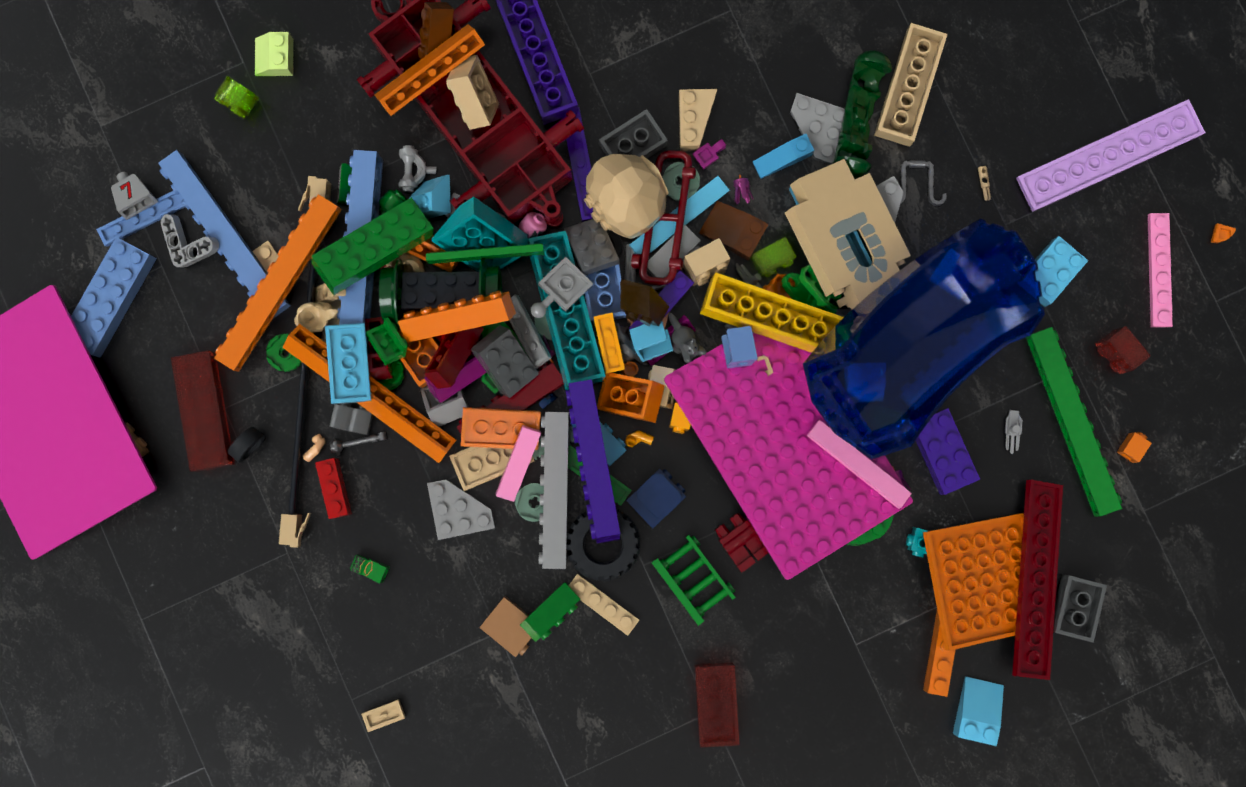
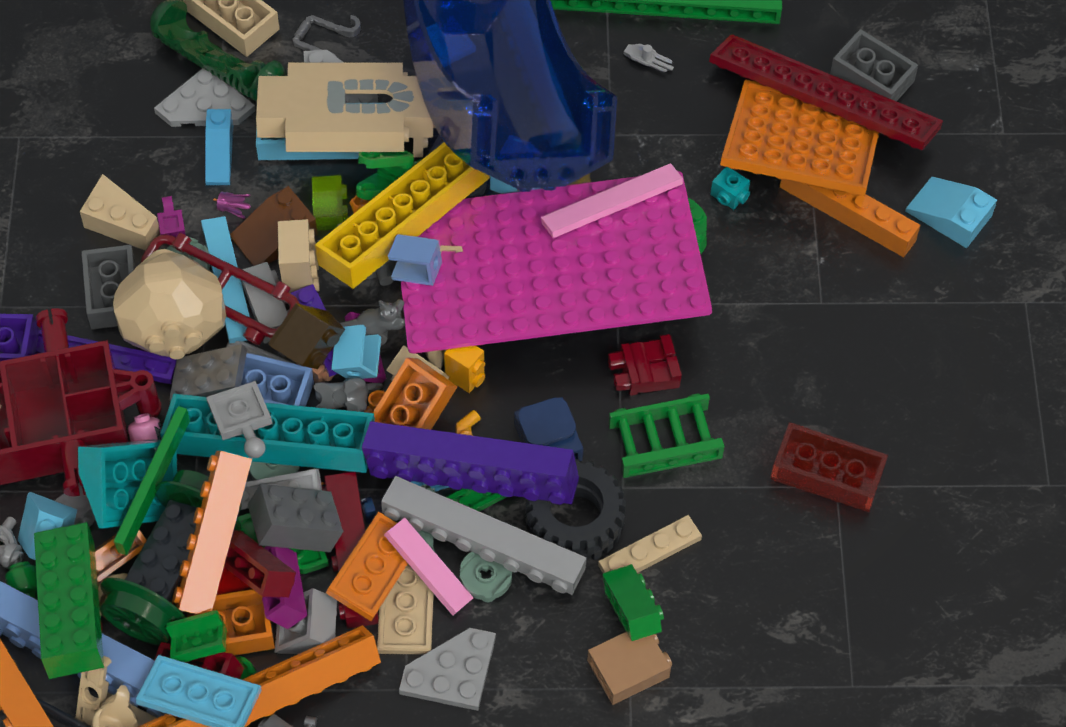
camera: 70 degrees left, 25 degrees down
(609, 343) = (332, 396): light orange plate -> none
(946, 454) = (651, 126): dark purple brick -> none

